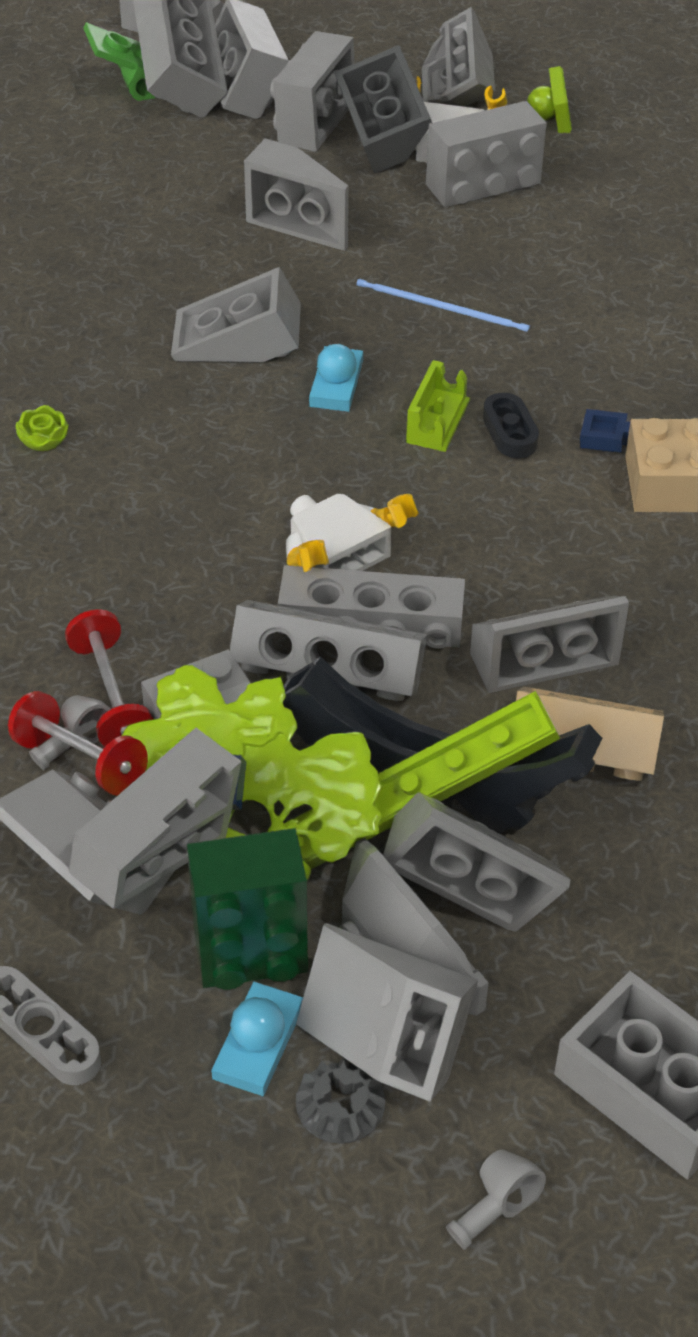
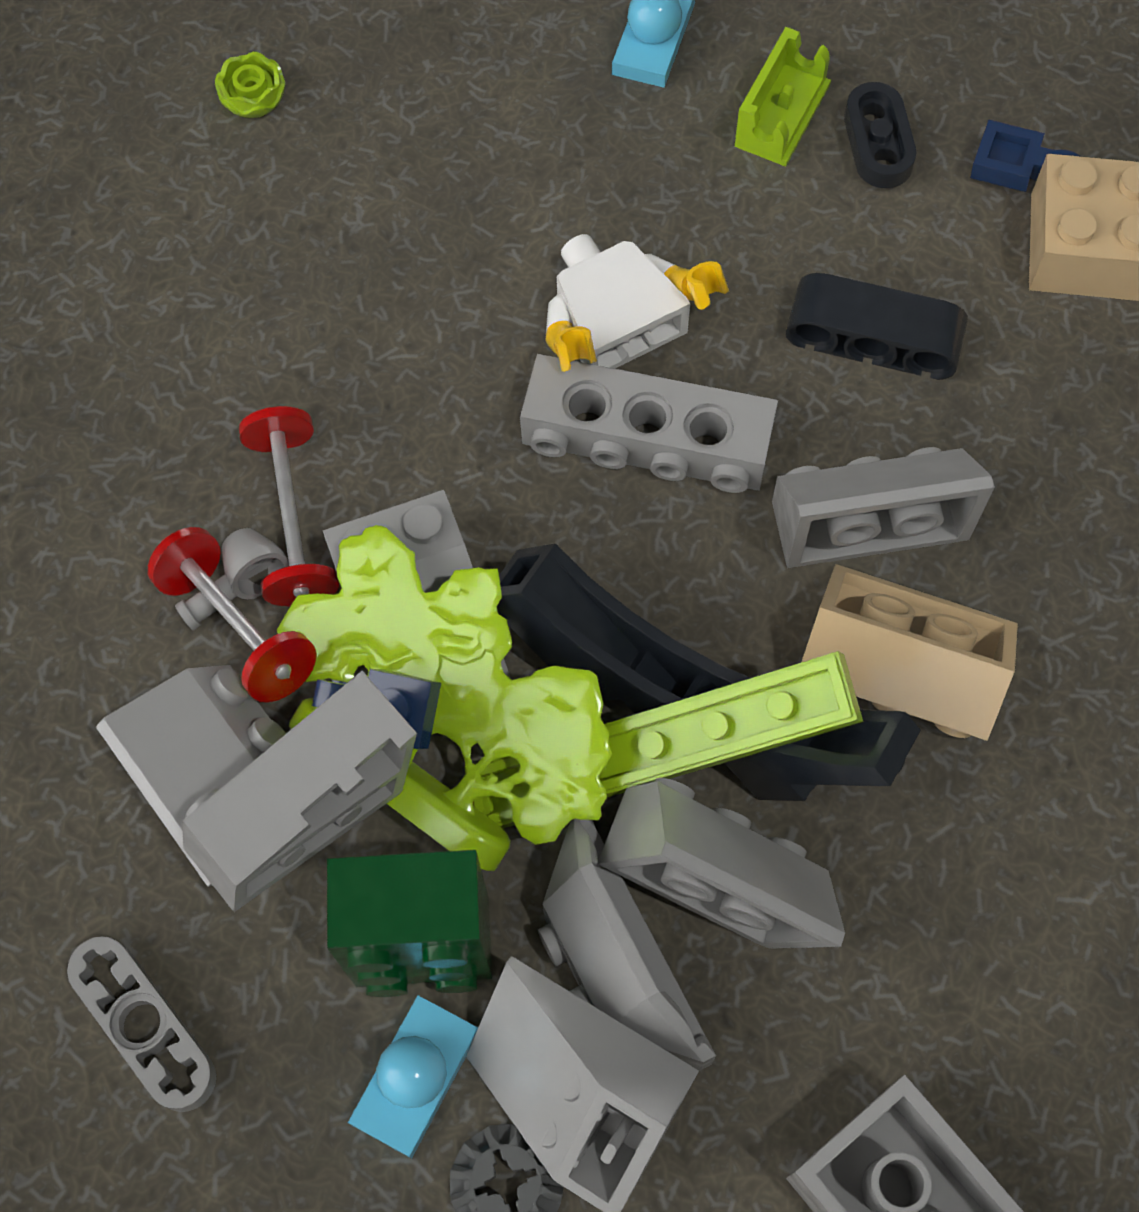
camera: 10 degrees right, 20 degrees up
(399, 648) = (611, 482): light grey brick -> none
(528, 535) = (877, 323): none -> black beam

